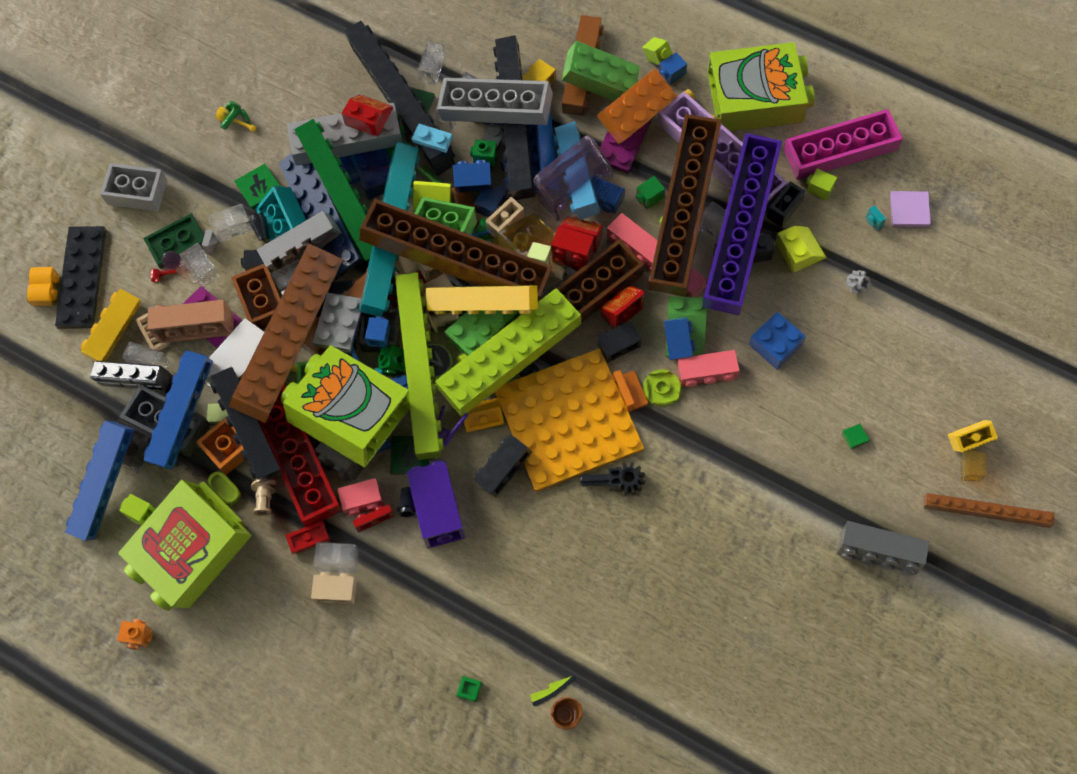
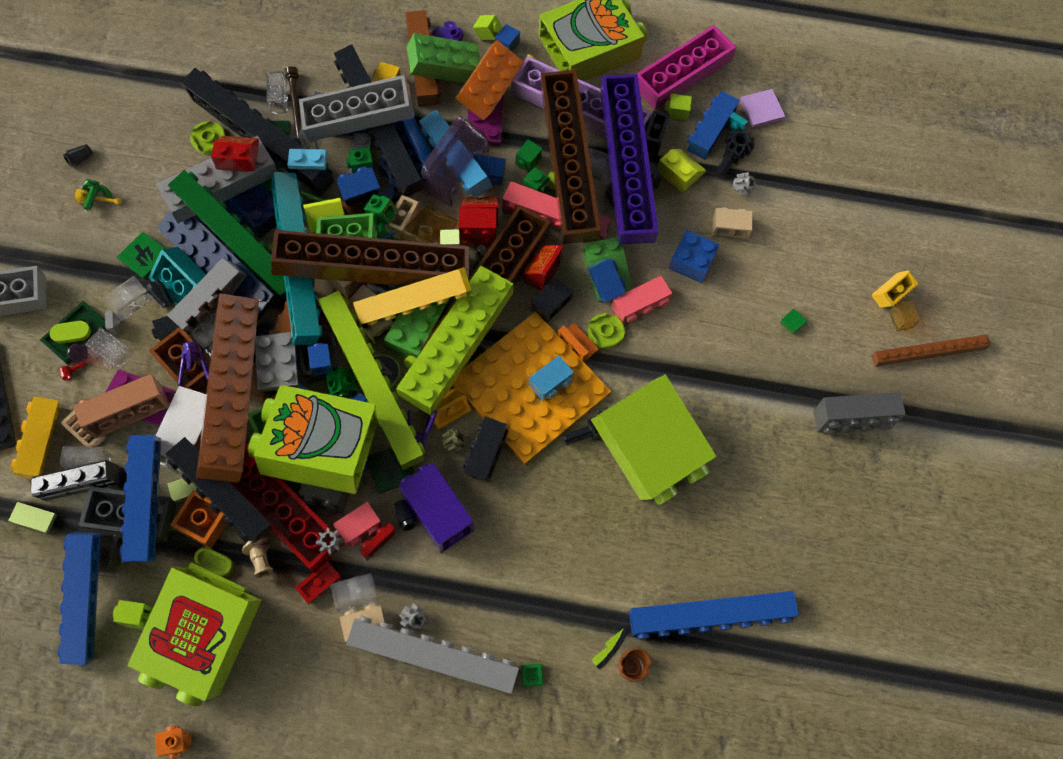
camera: 30 degrees left, 0 degrees up
(85, 397) = (32, 517): none -> yellowish green tile
(170, 239) = (70, 332): none -> lime tile
(231, 74) = (77, 155): none -> black cone
(265, 291) = (190, 354): none -> dark purple plant
(330, 507) = (324, 538): none -> light grey gear
(352, 86) = (204, 136): none -> lime tile
(379, 598) = (412, 617): none -> light grey gear
(383, 637) = (433, 655): none -> light grey brick
(451, 49) = (292, 75): none -> dark brown piece
(476, 447) = (453, 440): none -> olive gear
(485, 205) = (382, 208): none -> green brick
(588, 417) = (551, 378): none -> dark azure brick
(617, 46) = (449, 31): none -> dark purple plate
(647, 220) = (536, 180): none -> green brick
(661, 692) = (713, 613): none -> blue brick
(664, 508) = (655, 440): none -> lime brick
(830, 318) = (732, 223): none -> tan brick
(849, 212) = (712, 126): none -> blue brick
(861, 246) = (735, 151): none -> black gear

